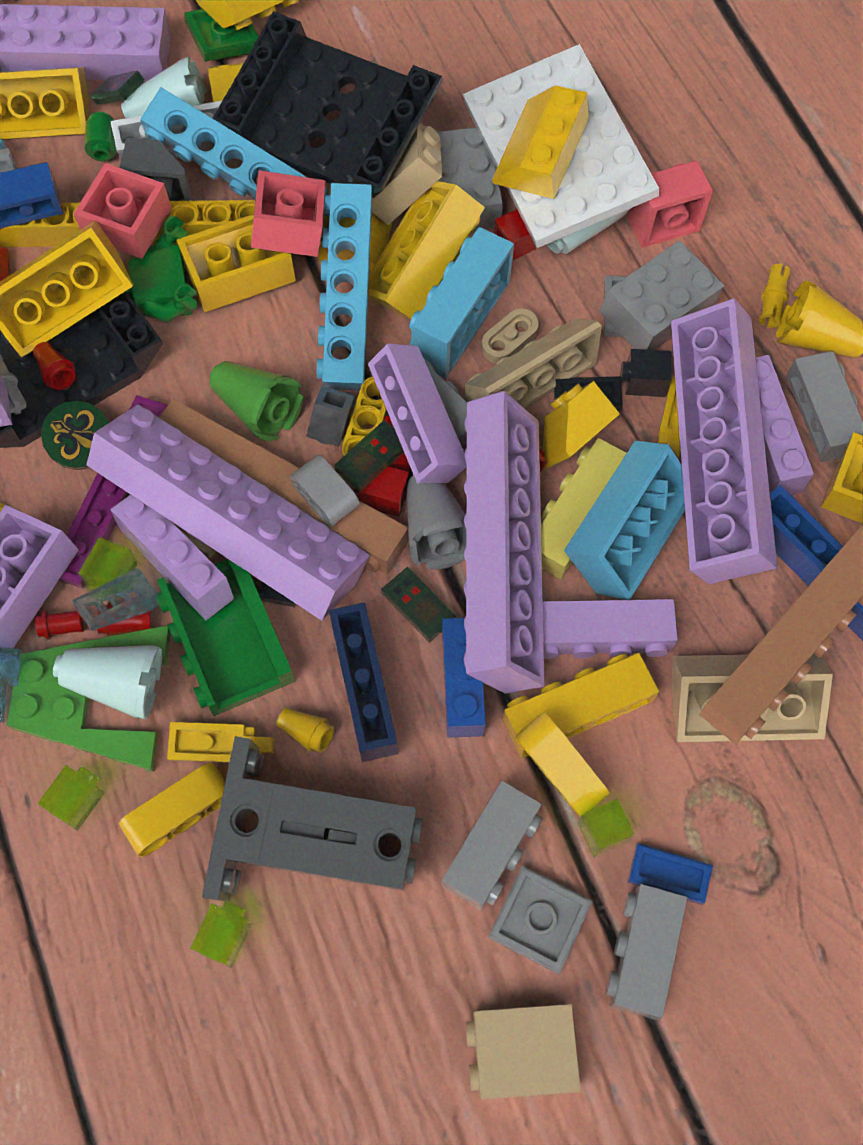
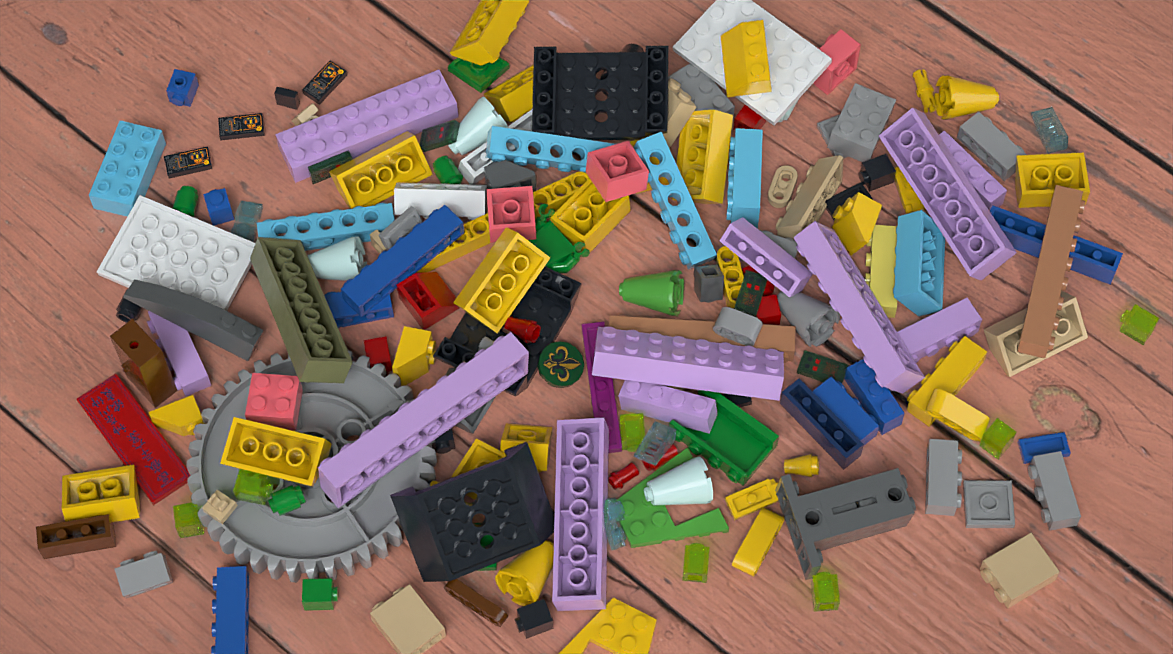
camera: 25 degrees left, 5 degrees down
(69, 161) = (426, 197): none -> white brick
(408, 682) = (848, 410): none -> blue brick

